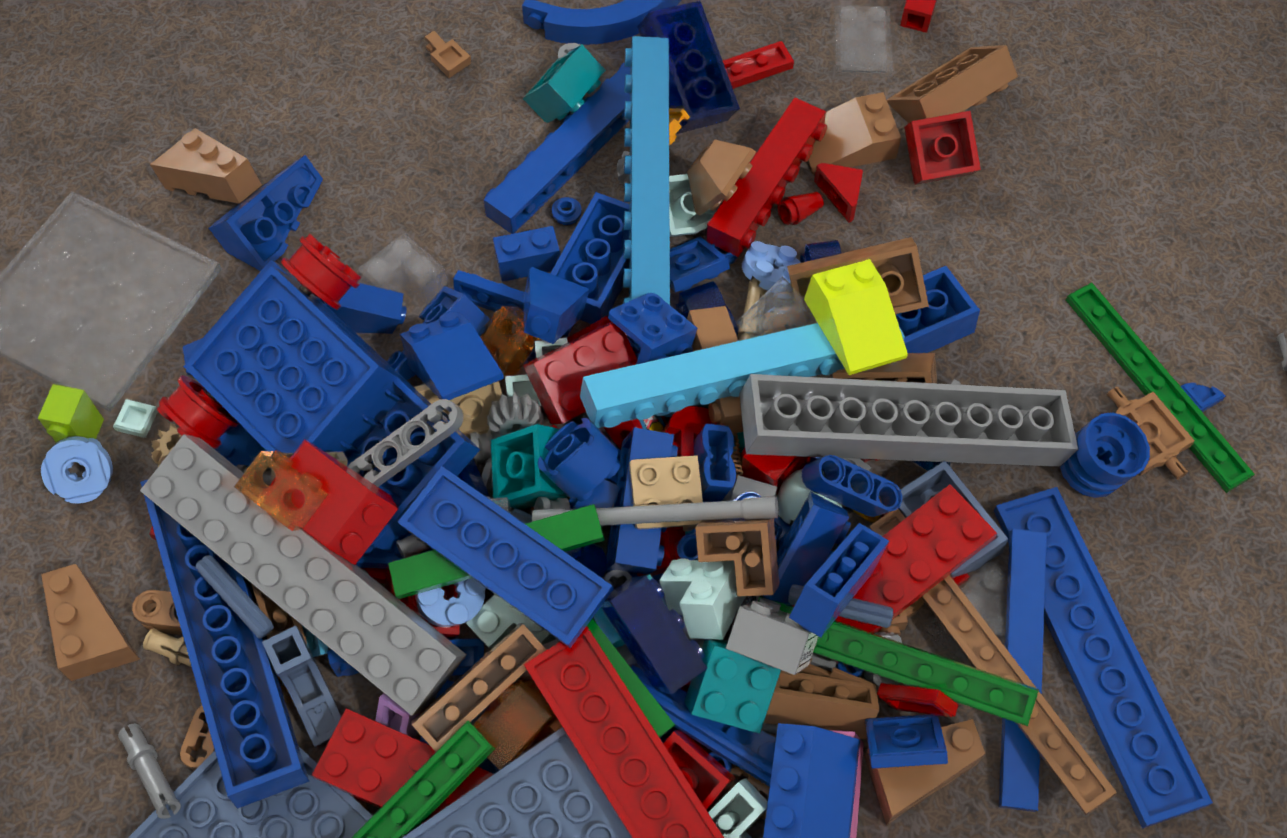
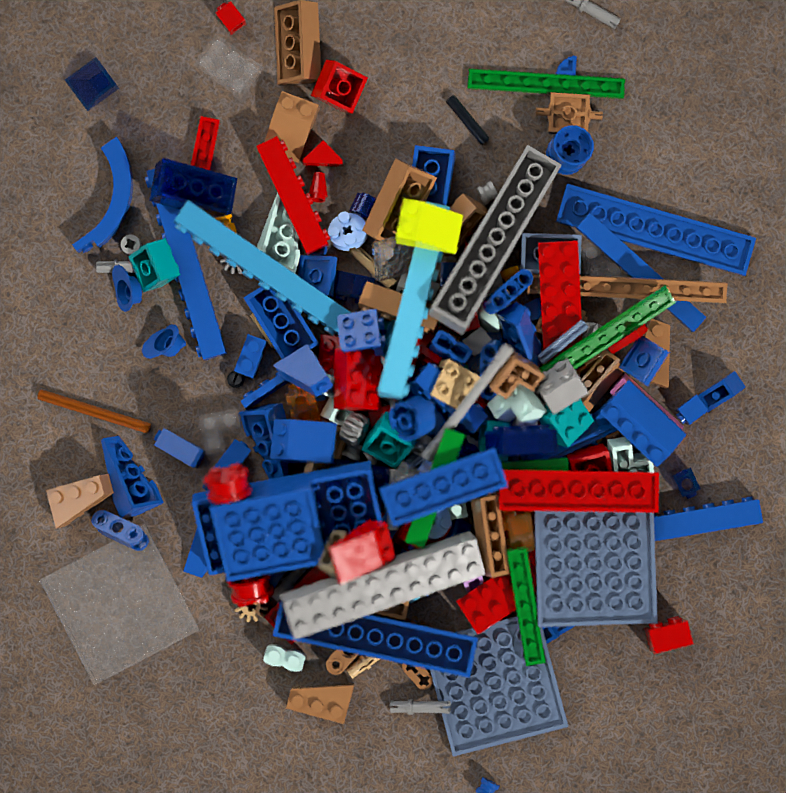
camera: 55 degrees left, 25 degrees up
(66, 484) = (227, 653): light blue plate -> none
(70, 414) = (201, 652): lime brick -> none
(124, 535) = (279, 656): none -> light aqua brick
(135, 418) = (213, 618): light aqua tile -> none
(191, 235) = (130, 536): none -> blue piece
(234, 596) = (369, 623): sand blue axle -> none
(277, 498) = (351, 578): clear orange brick -> none
(304, 683) = (430, 612): sand blue arch -> none
(337, 138) = (93, 411): none -> dark orange axle
(349, 236) = (179, 447): none -> blue slope
(401, 442) = (354, 499): light grey beam -> none
(447, 56) = (79, 314): medium nougat plate -> none
(476, 160) = (164, 342): none -> blue piece
(485, 259) = (235, 379): none -> black piece
(516, 83) = (127, 288): none -> blue piece
(533, 61) = (107, 266): none -> light grey axle
(566, 217) = (238, 320): blue plate -> none
(716, 172) = (281, 227): medium nougat slope -> none
(838, 580) = (559, 339): blue brick -> none
(1028, 322) = (467, 120): none -> black axle

